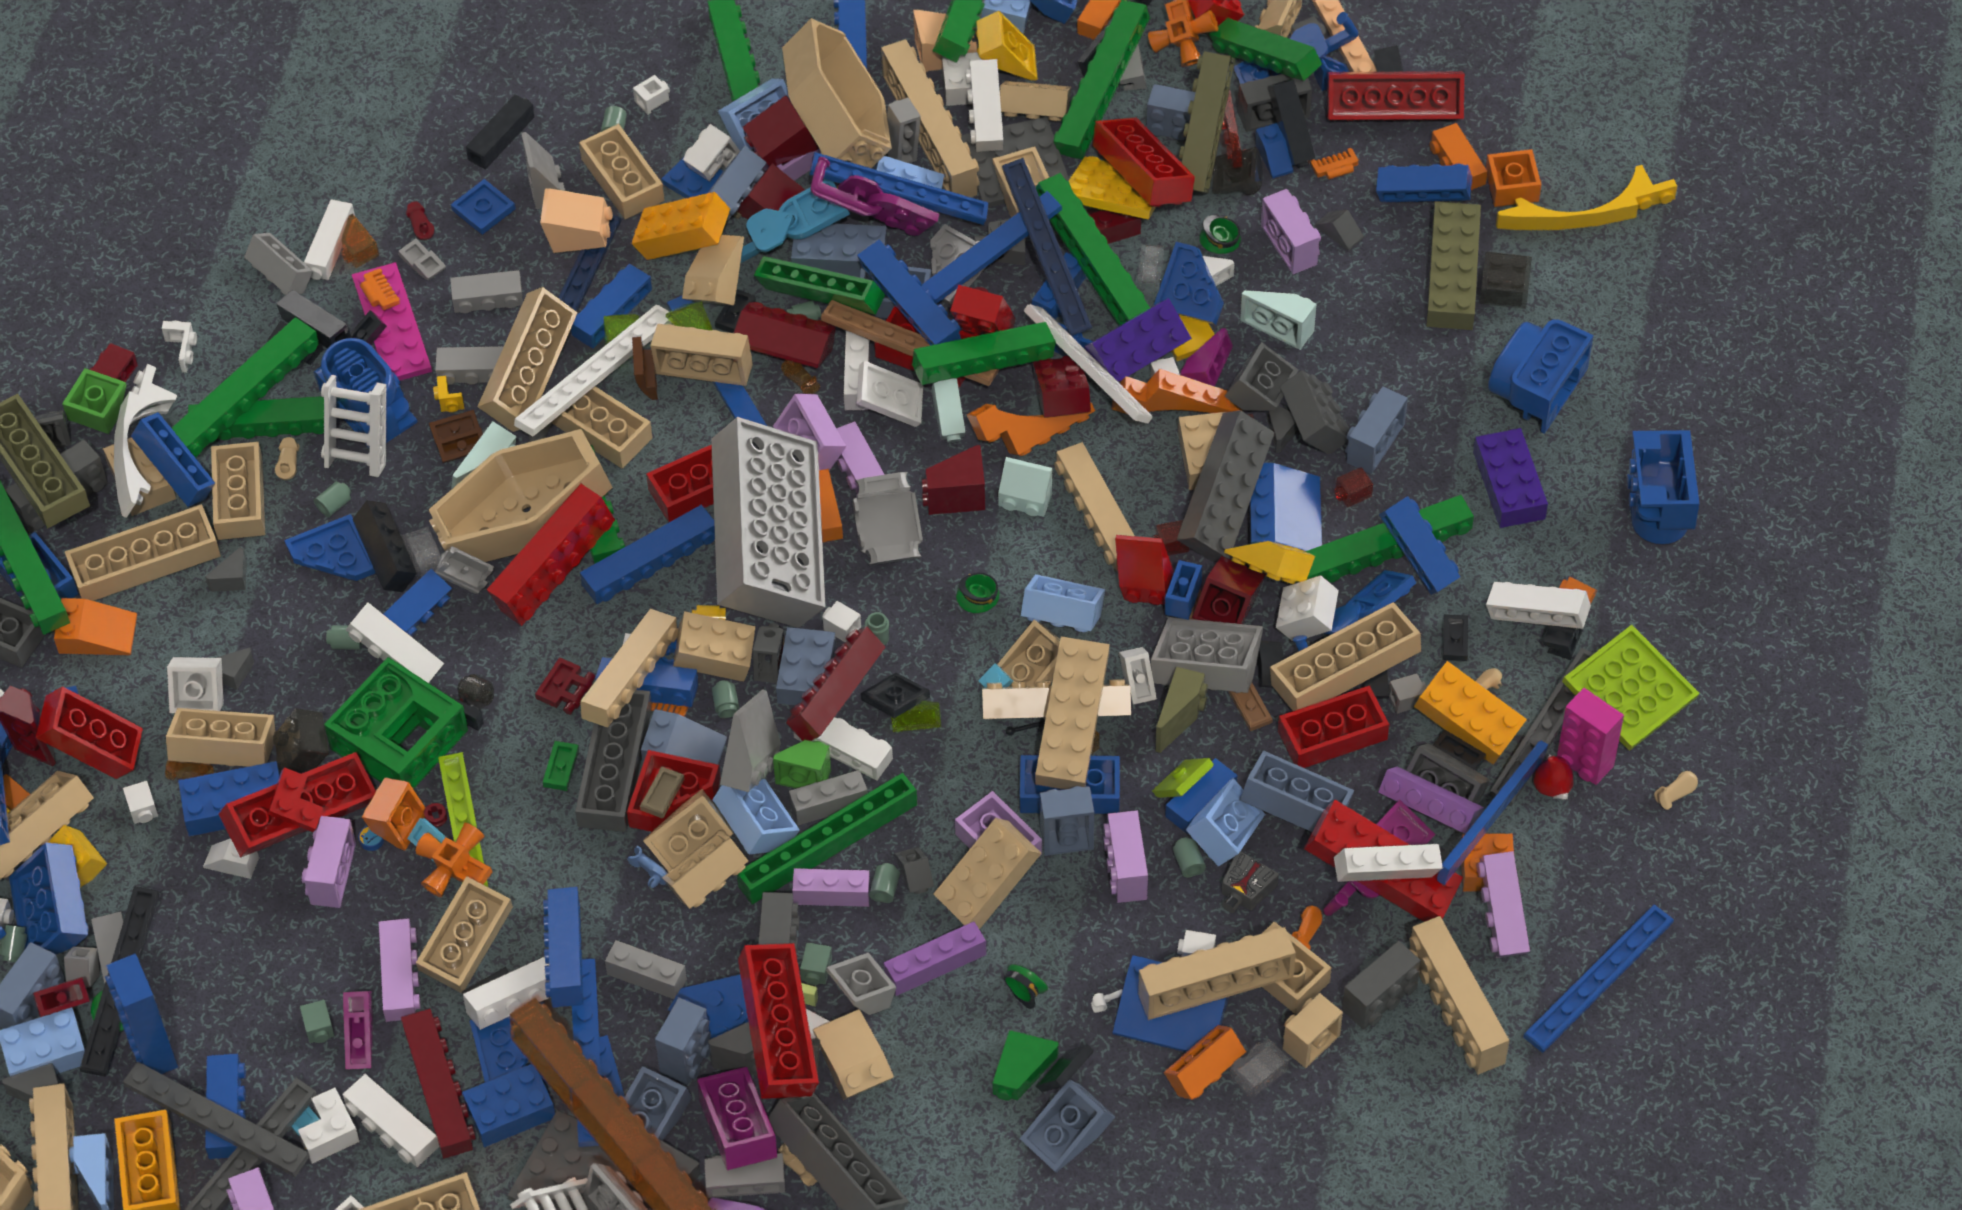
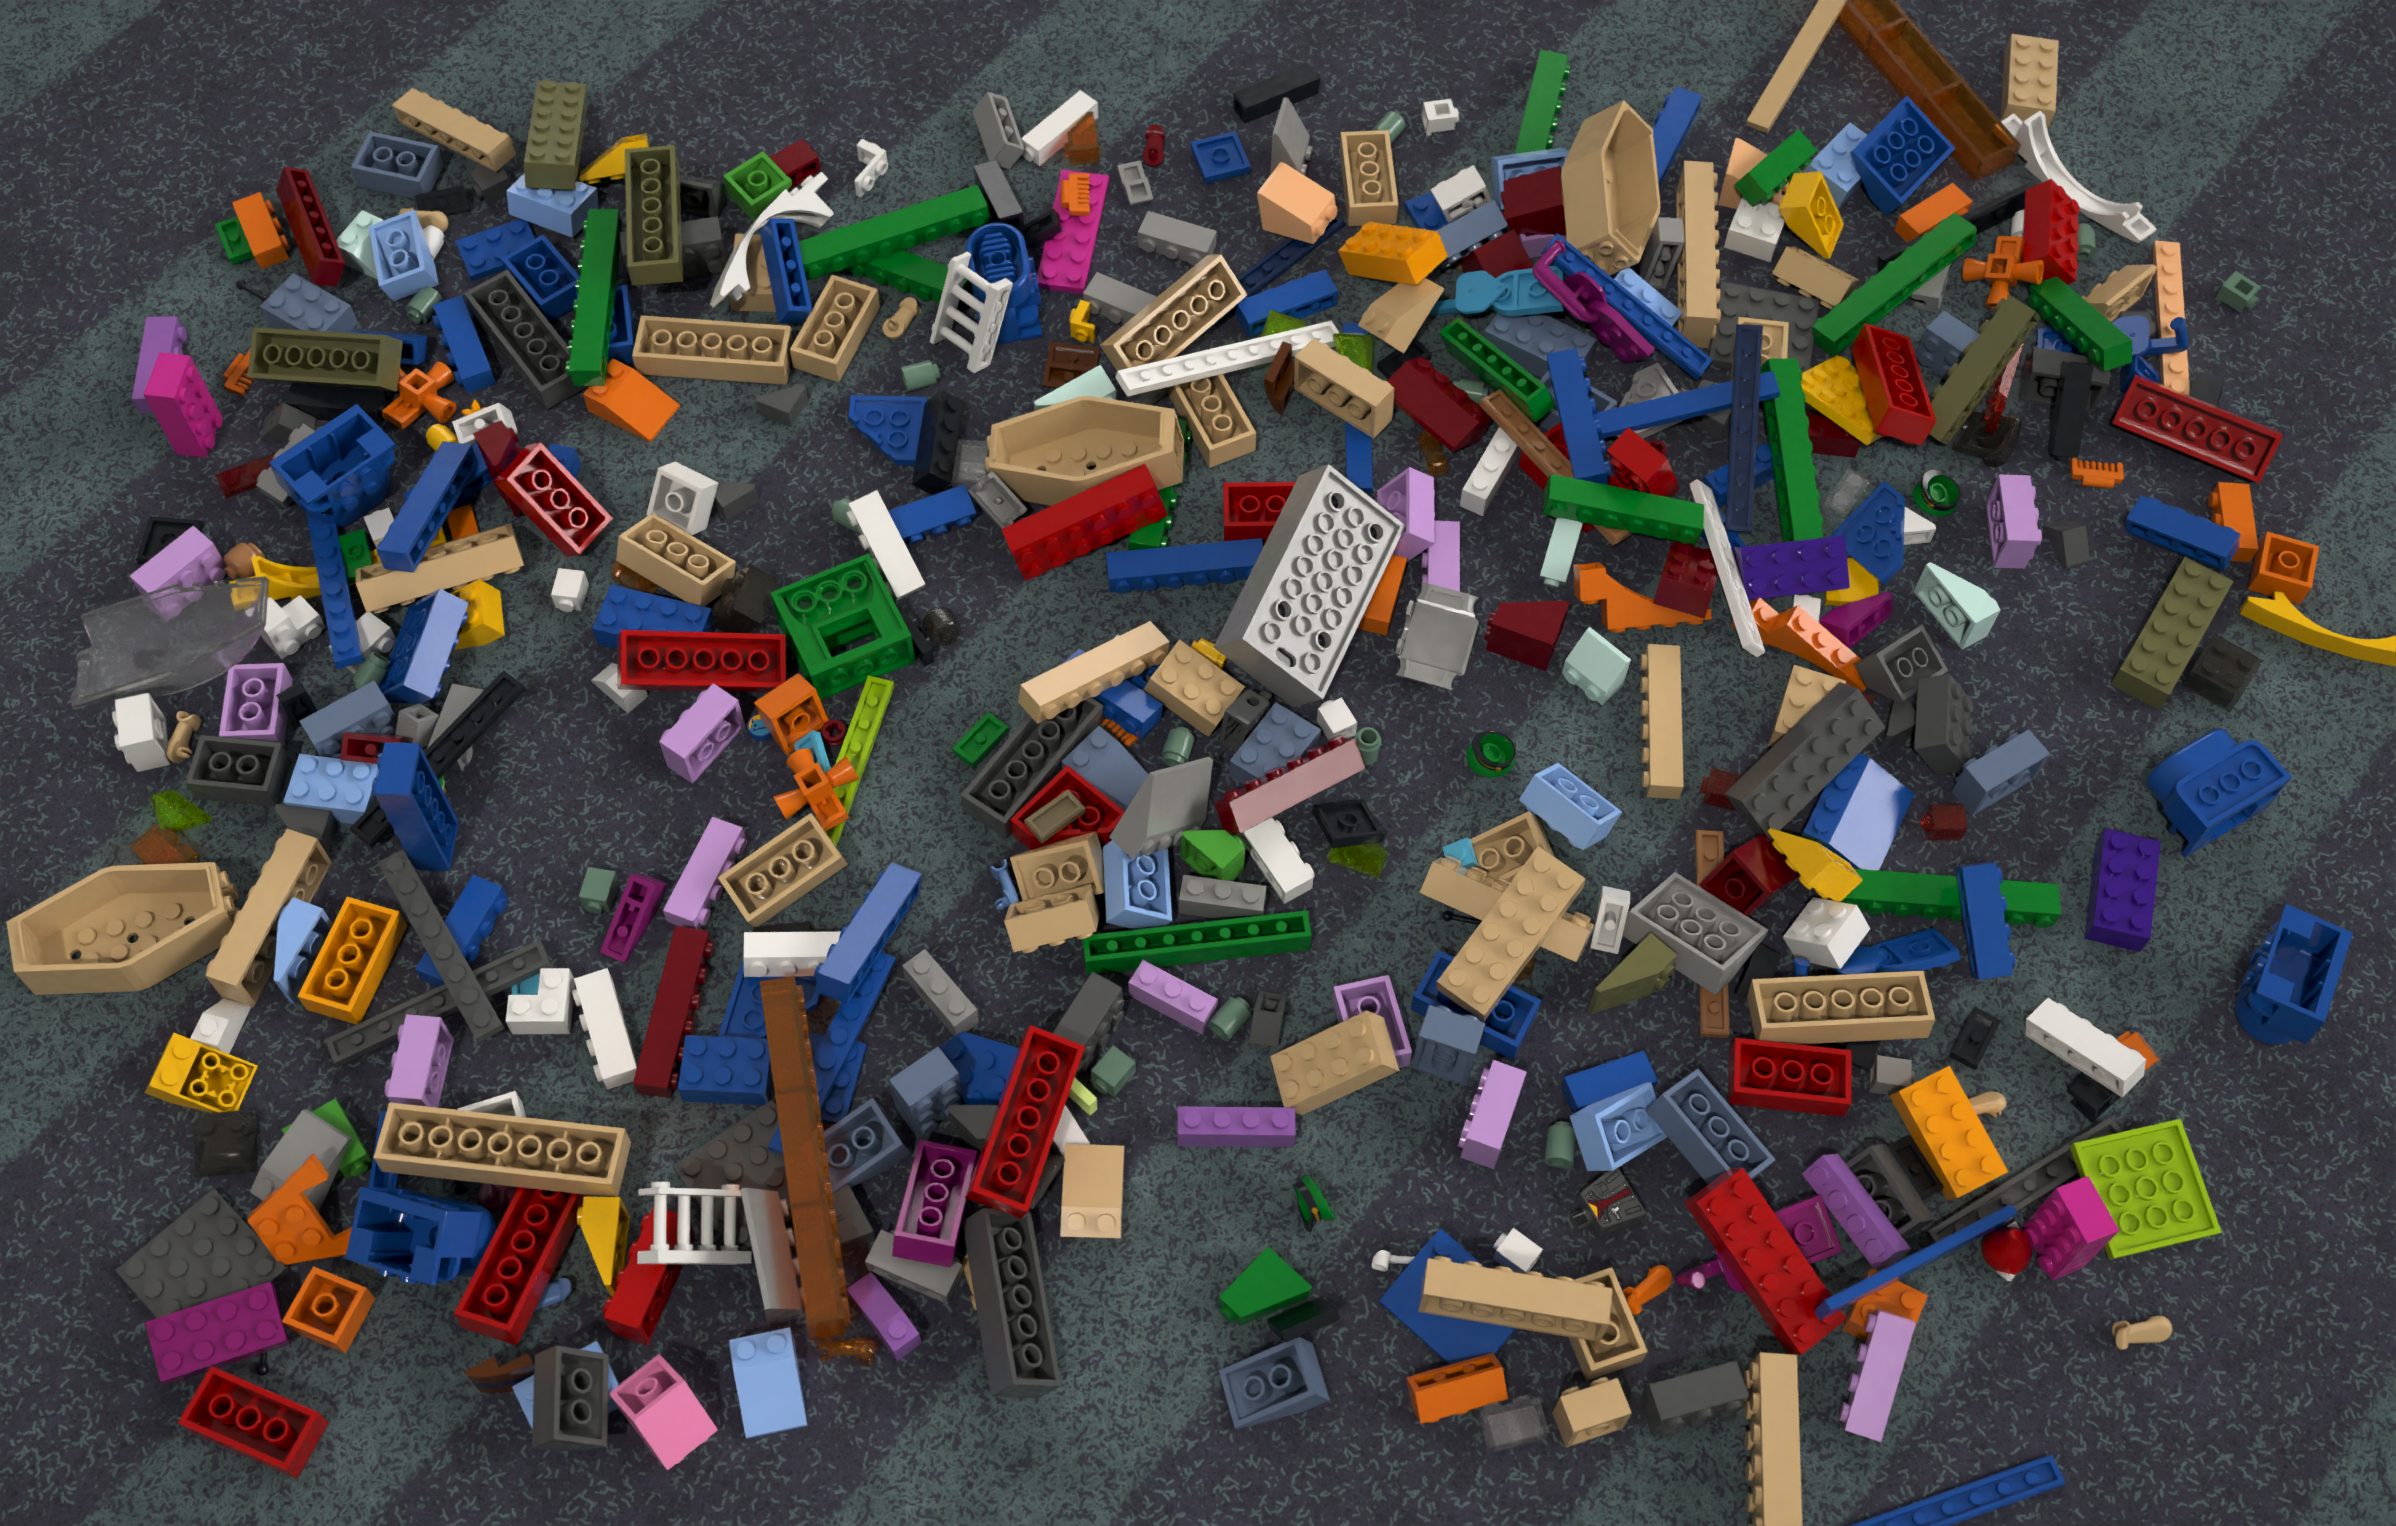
camera: 25 degrees right, 5 degrees up
(289, 806) = (684, 659): red plate -> none
(559, 681) = (1026, 654): dark red plate -> none
(864, 983) = (1144, 1118): light grey slope -> none
(890, 394) = (1509, 509): white plate -> none
(986, 105) = (1760, 261): white brick -> none
(1143, 569) = (1672, 812): red slope -> none
(1183, 590) = (1703, 851): blue brick -> none
(1183, 778) = (1598, 1055): lime plate -> none
(1273, 150) = (2037, 431): blue slope -> none
(1388, 862) = (1766, 1268): white brick -> none

